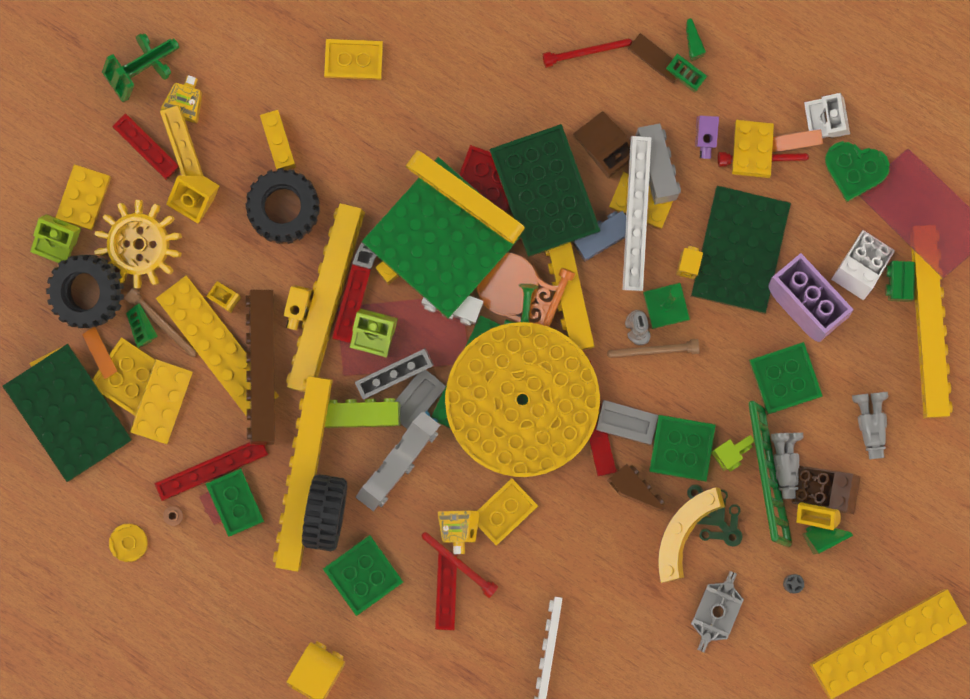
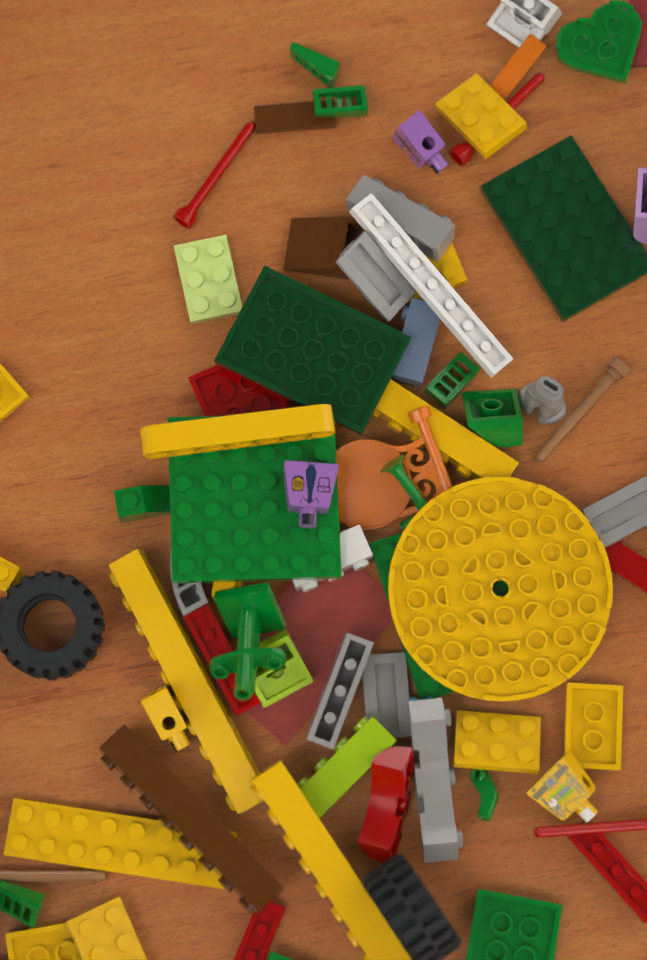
camera: 40 degrees left, 5 degrees down
(223, 297) = (76, 782): yellow slope -> none
(365, 451) = (387, 803): none -> red brick
(384, 293) = (248, 614): none -> green piece
(386, 186) = (142, 502): none -> green slope
(420, 492) = (487, 791): none -> green arm
(448, 473) = (497, 742): none -> yellow plate
(472, 259) = (309, 489): none -> medium lavender torso
(529, 103) = (208, 279): none -> yellowish green plate
(588, 272) = (437, 395): none -> green slope
(606, 310) = (495, 416): none -> green slope
(612, 182) = (375, 276): none -> light grey piece
(666, 306) = (550, 349): green tile -> none
(689, 262) = (532, 286): yellow brick -> none

